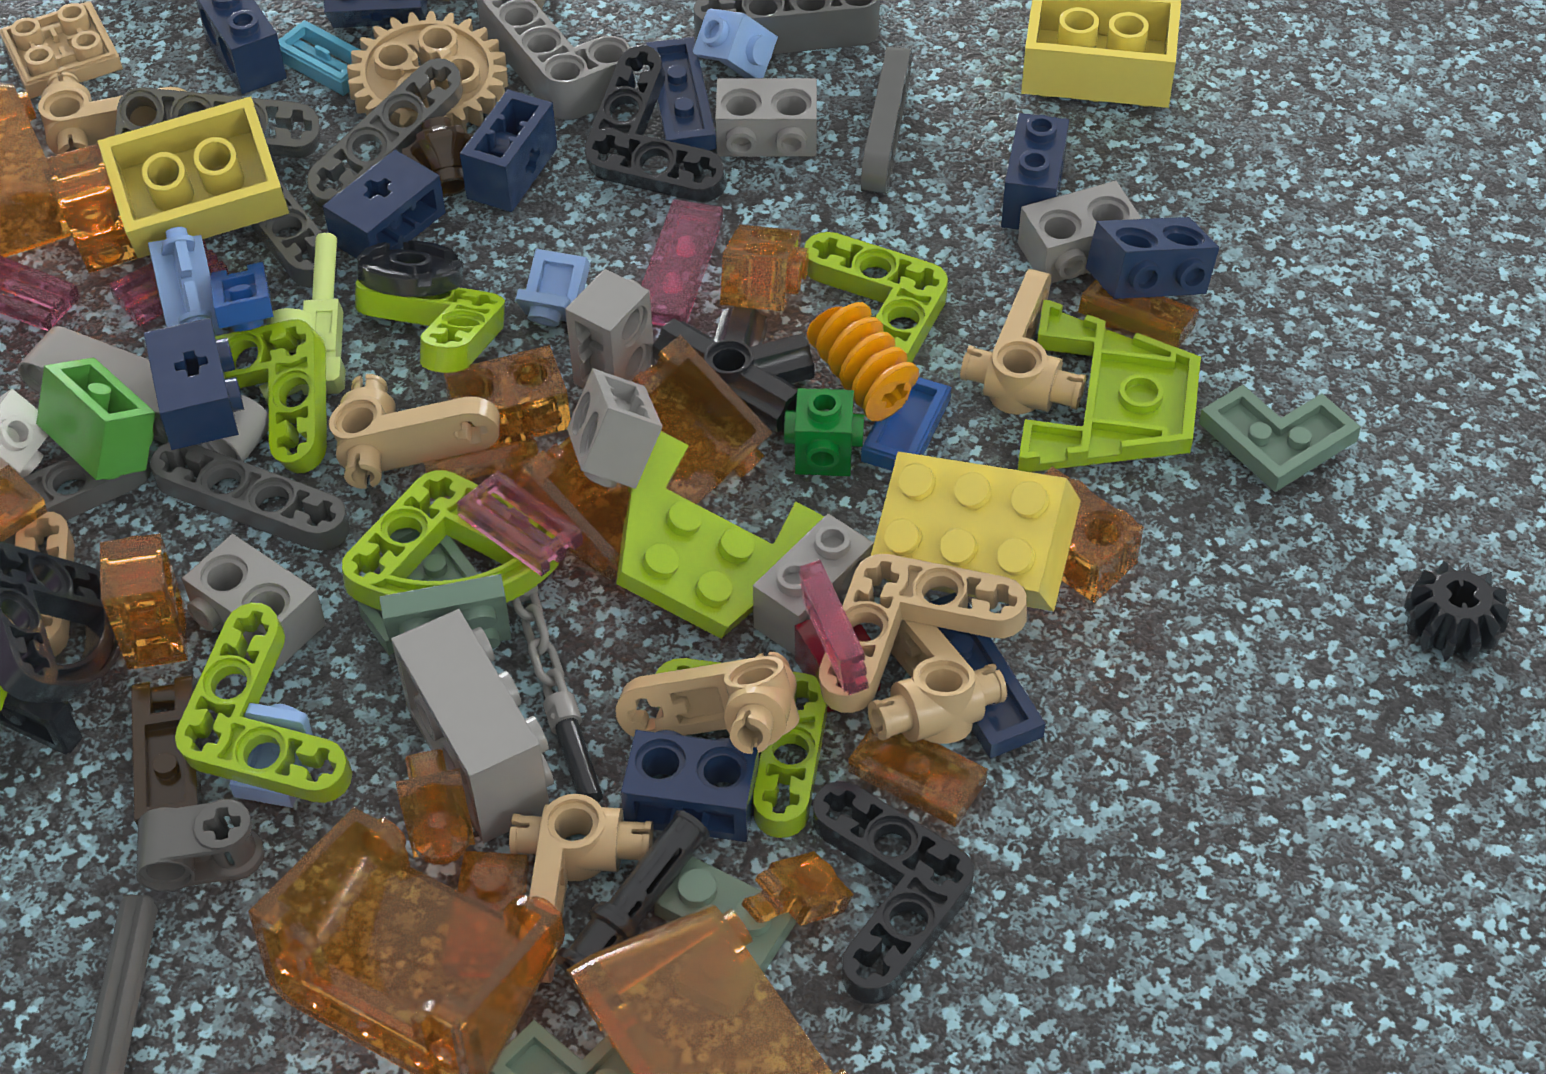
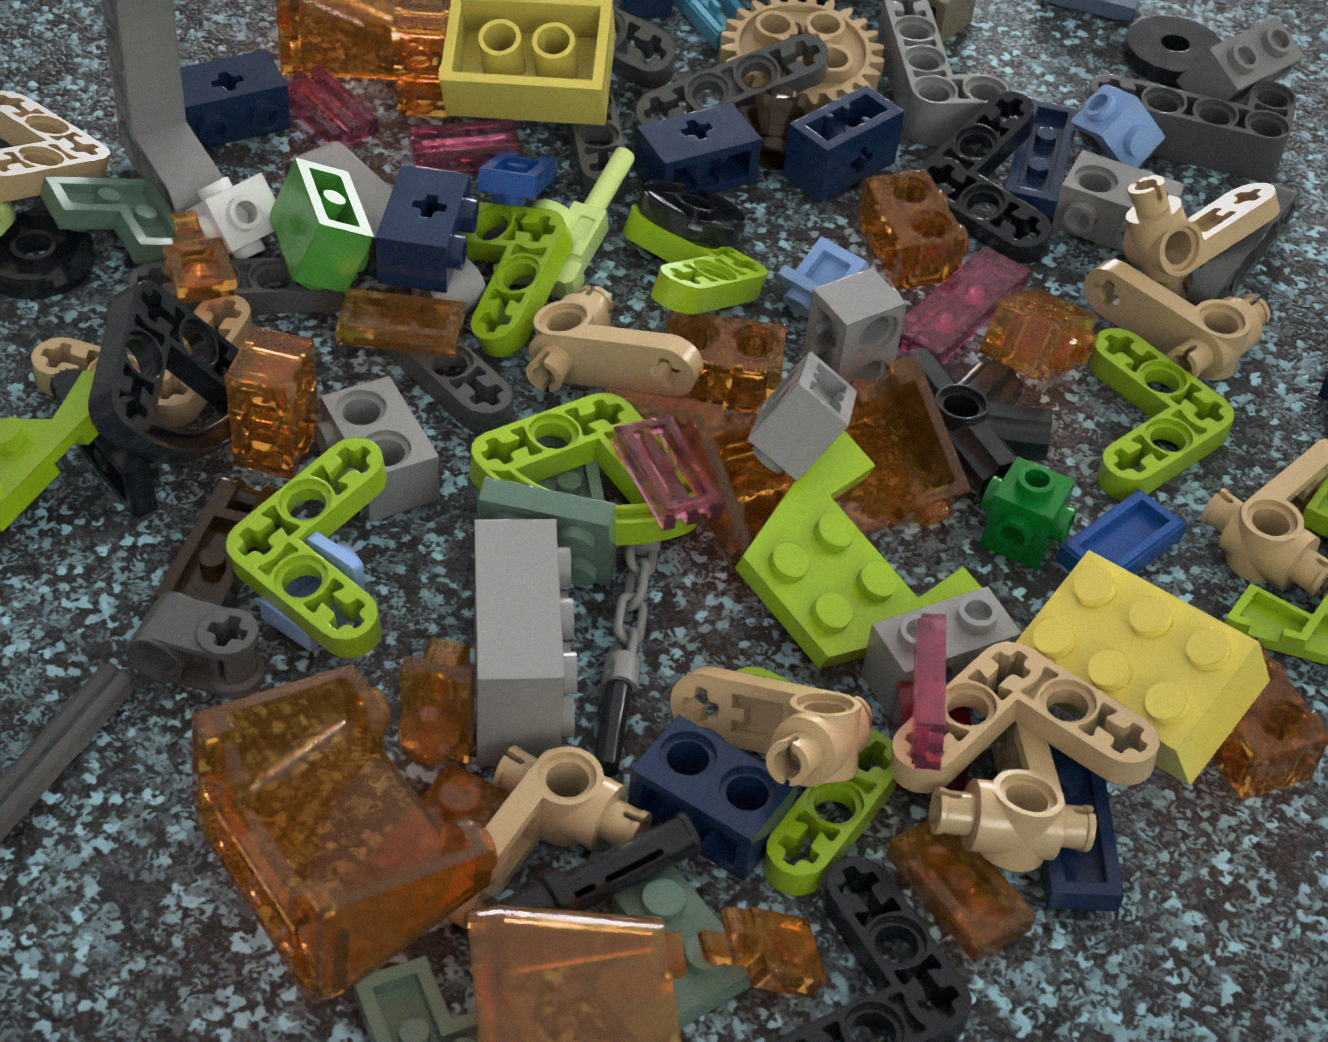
camera: 20 degrees right, 5 degrees down
(183, 278) = (475, 137): light blue hinge -> none
(213, 479) = (401, 322): none -> clear orange plate
(605, 208) = (911, 229): none -> clear orange brick
(834, 138) = (1171, 246): none -> tan piece
(864, 358) = (1103, 456): light orange piece -> none
(885, 217) = (1198, 338): none -> tan piece

